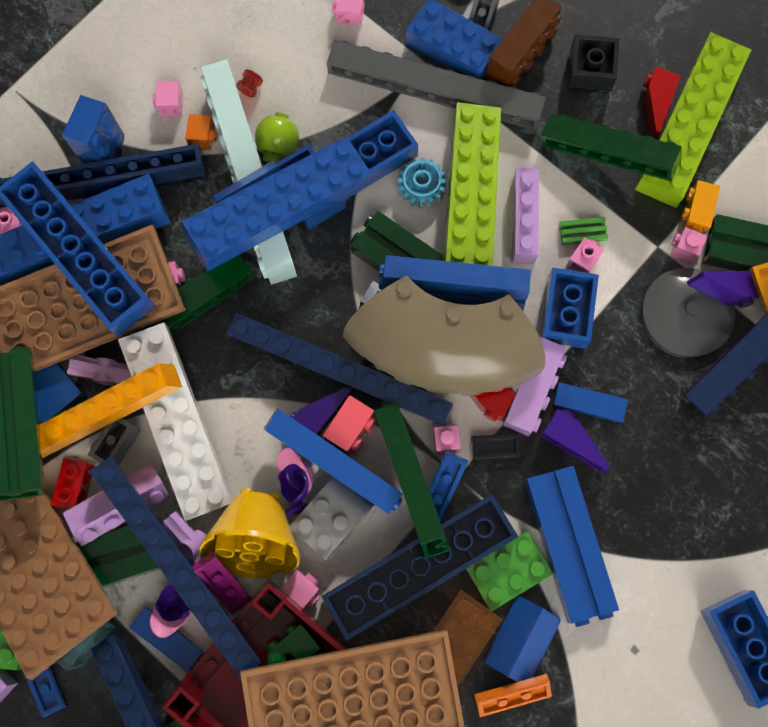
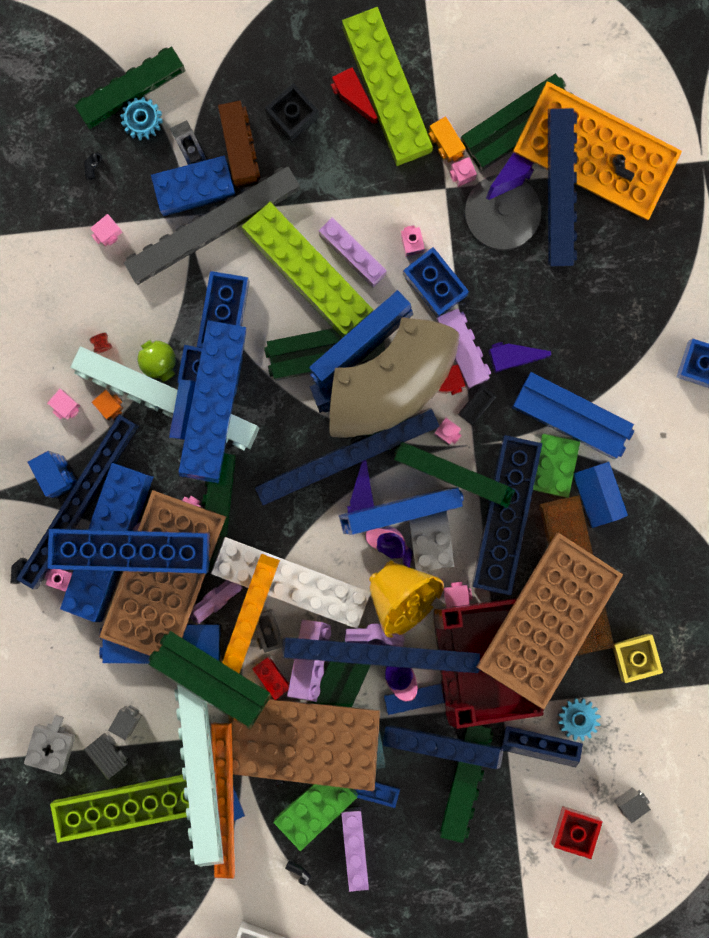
camera: 45 degrees left, 10 degrees up
(221, 582) = (413, 637): magenta plate -> none
(299, 642) = (485, 623): green brick -> none
(350, 426) = (388, 481): coral brick -> none
(417, 192) = (271, 285): medium azure gear -> none
(446, 481) = (472, 454): blue tile -> none
(513, 695) = (625, 528): orange tile -> none
(581, 223) = (403, 212): bright green tile -> none
(590, 402) = (502, 324): blue tile -> none
(612, 146) = (359, 159): dark green brick -> none

